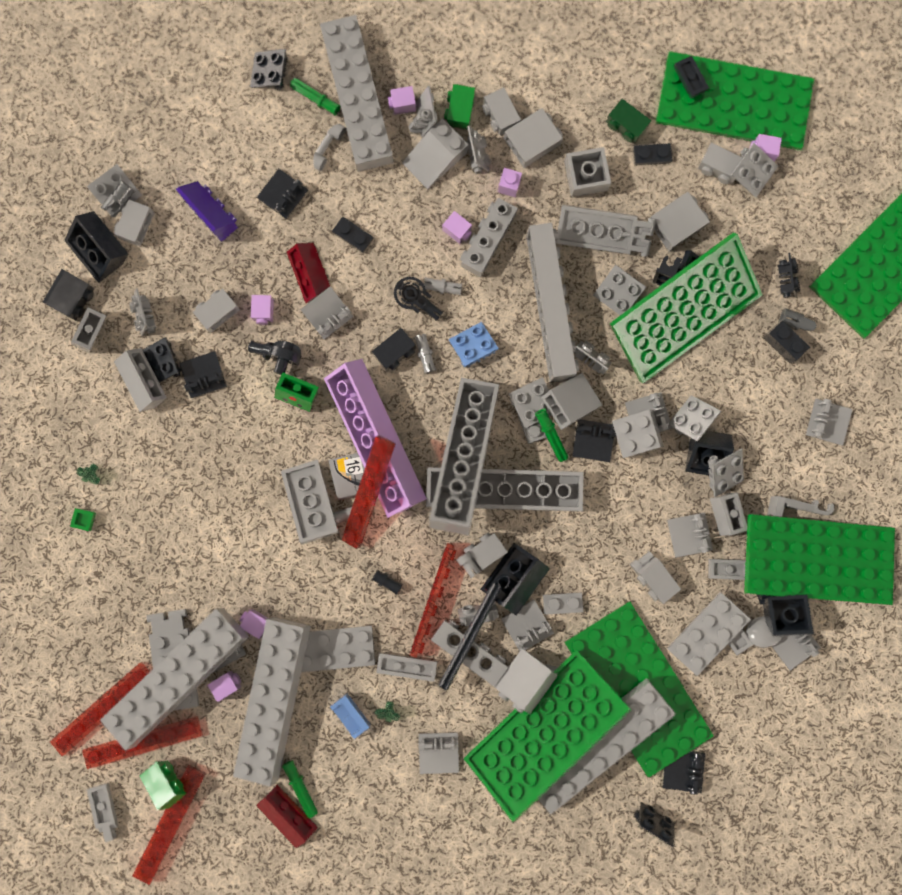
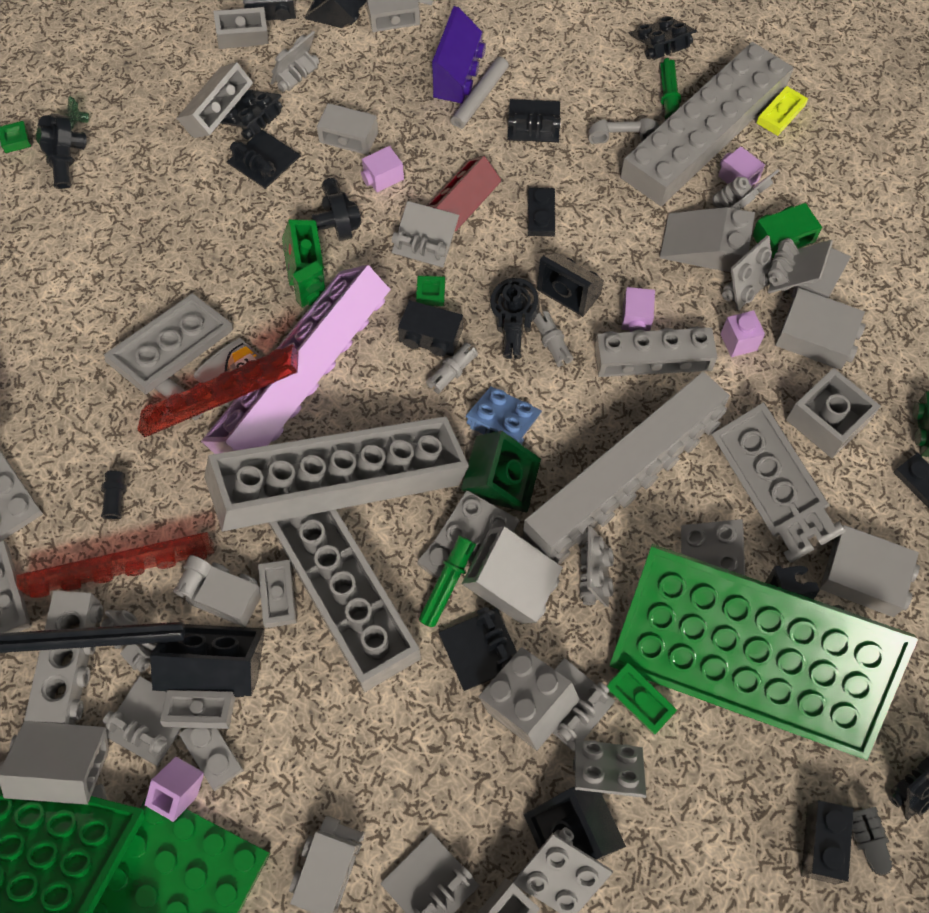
camera: 60 degrees right, 20 degrees down
(113, 495) = (55, 141): none -> black pin
(238, 211) = (479, 92): none -> light grey piece
(325, 401) = (308, 284): none -> green plate
(367, 333) = (431, 290): none -> green plate
(375, 42) = (782, 110): none -> neon yellow plate
(416, 253) = (568, 283): none -> black slope
(492, 120) = (797, 266): none -> light grey hinge
(500, 525) = (277, 594): none -> light grey plate
(507, 368) = (501, 471): none -> dark green slope
(541, 598) = (197, 709): none -> light grey plate
(574, 629) = (174, 789): none -> lavender brick
(669, 380) = (641, 698): none -> green plate

